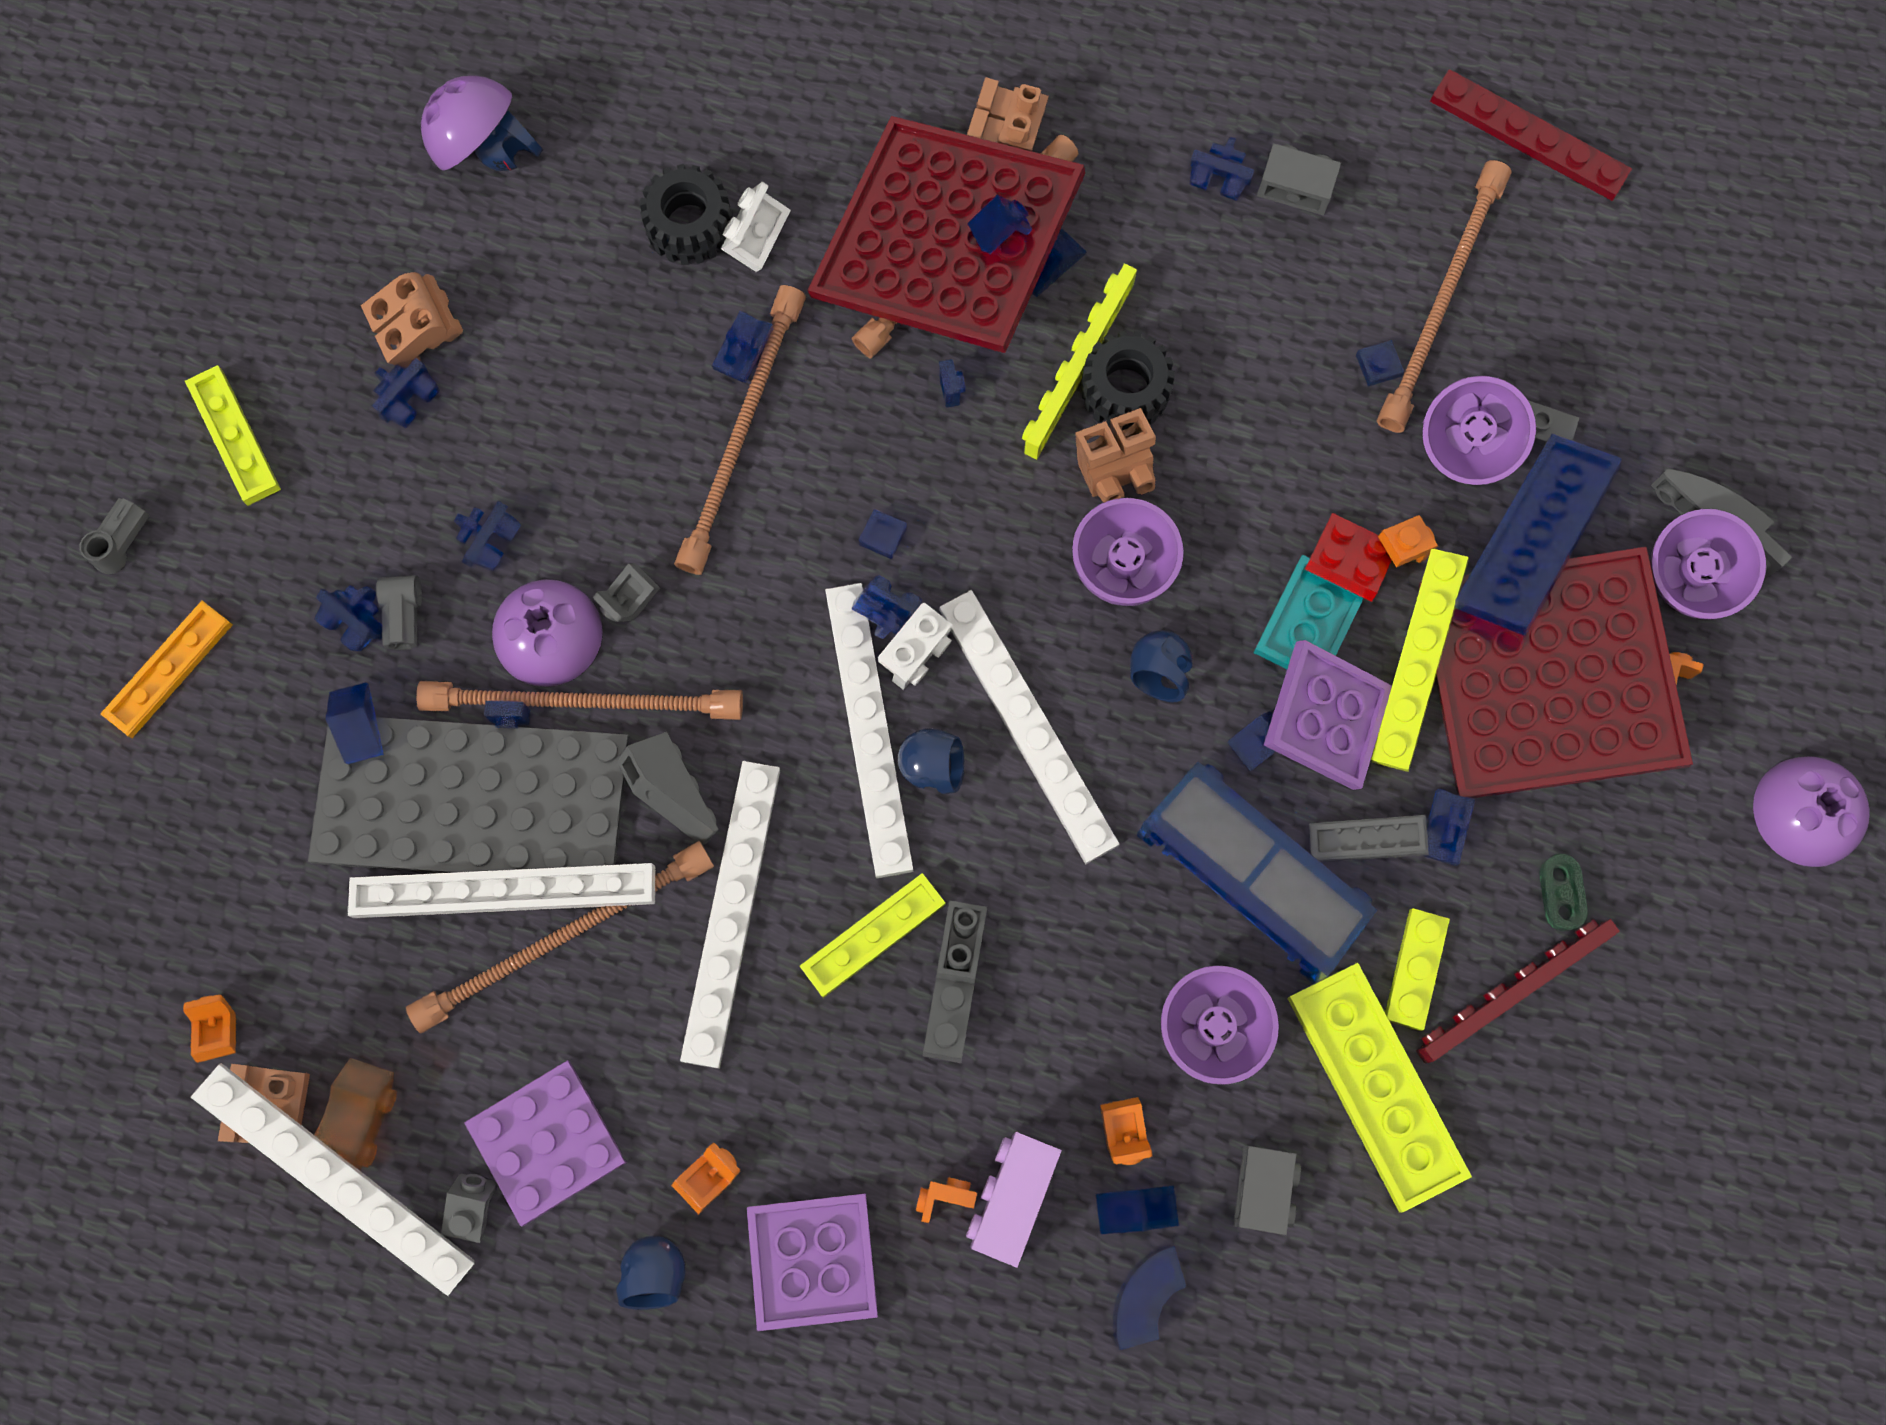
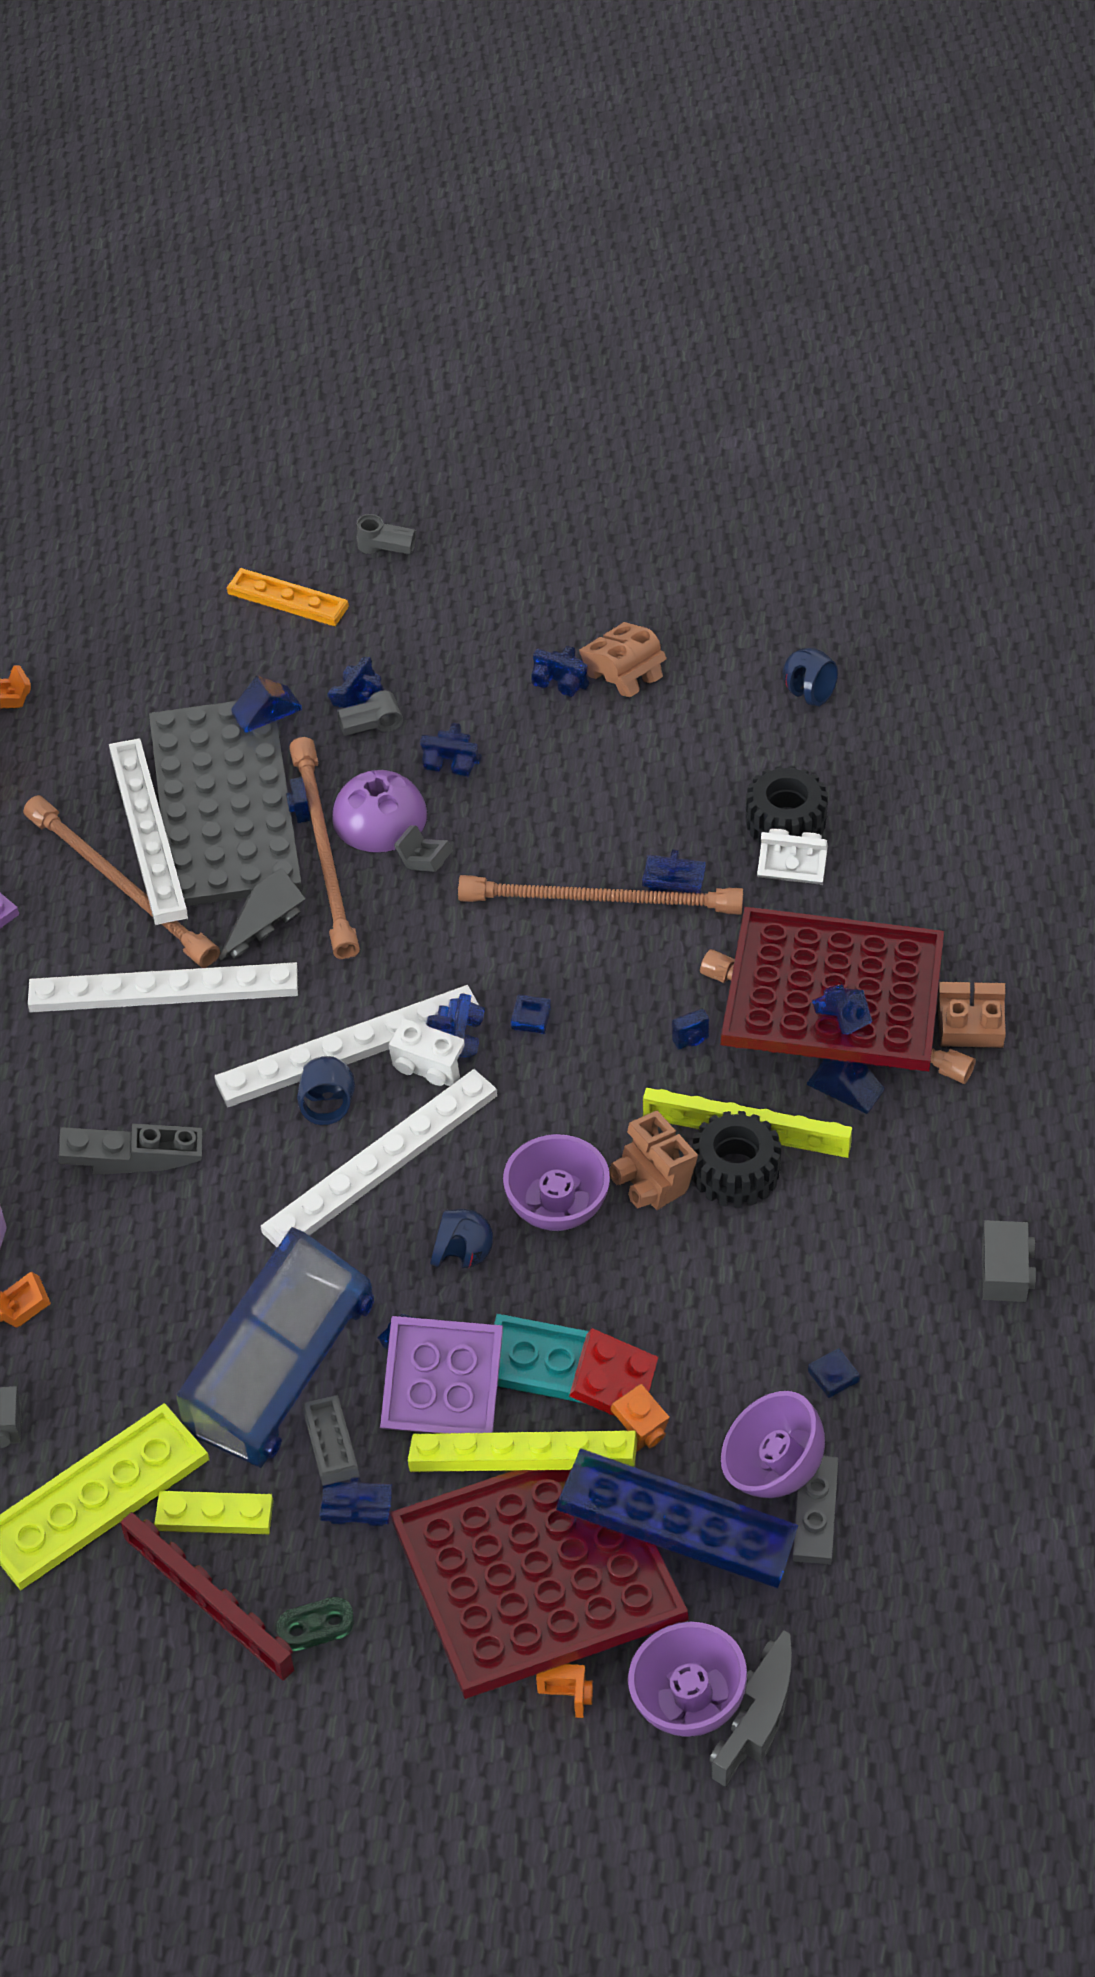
camera: 80 degrees right, 25 degrees down
(232, 435) = (491, 582): neon yellow plate -> none
(462, 117) = (812, 629): medium lavender piece -> none
(872, 935) = (161, 1084): neon yellow plate -> none
(1206, 165) = (996, 1193): clear blue hips -> none
(1241, 1028) = (121, 1337): medium lavender piece -> none
(1398, 407) = (1068, 1433): nougat hose -> none
(1796, 819) = (461, 1873): medium lavender piece -> none

